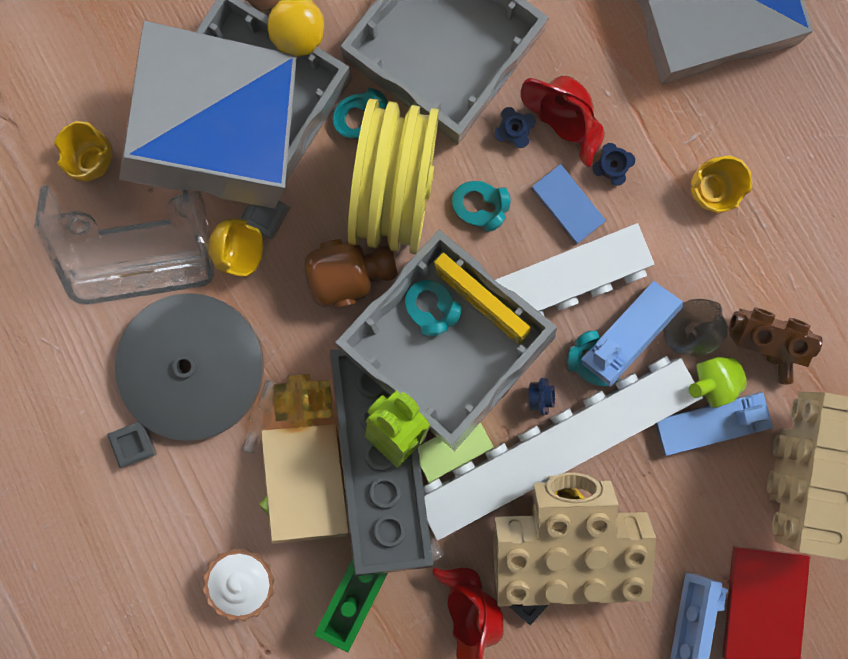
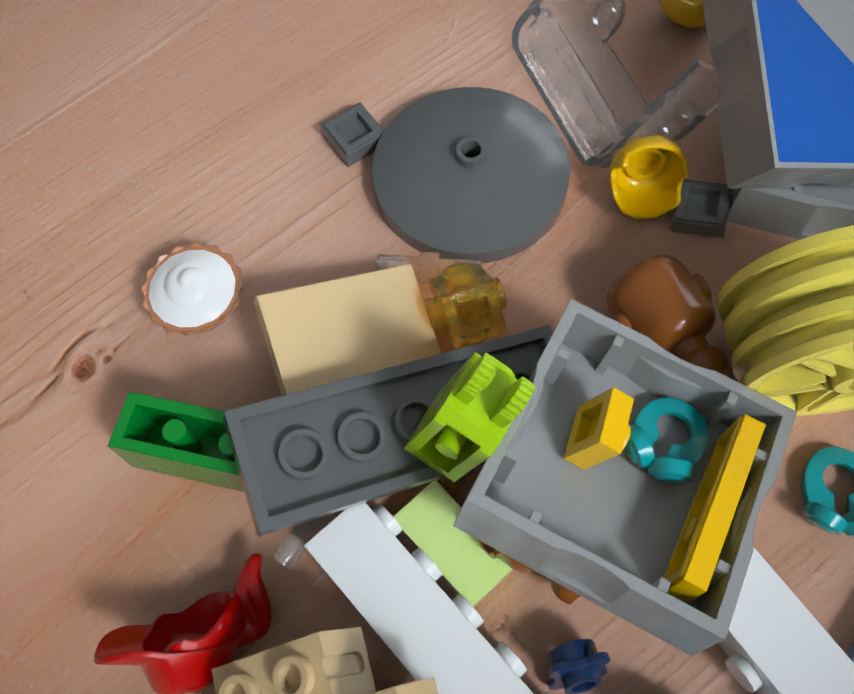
camera: 80 degrees right, 20 degrees down
(420, 349) = (599, 429): none -> yellow plate

